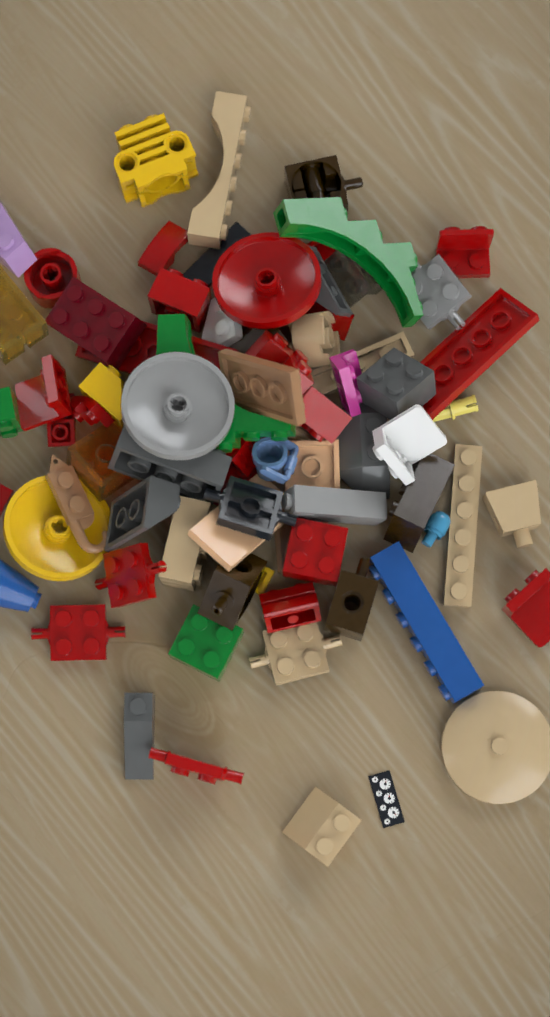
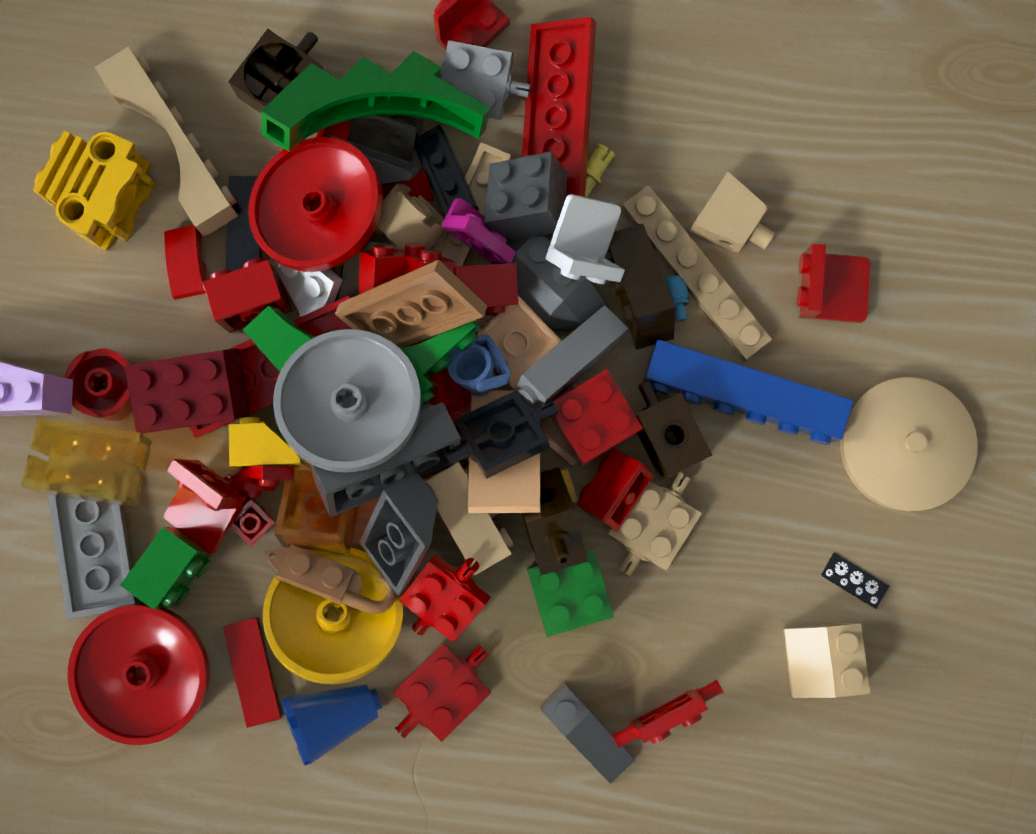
camera: 50 degrees left, 5 degrees up
(366, 327) = (443, 169): none -> black tile

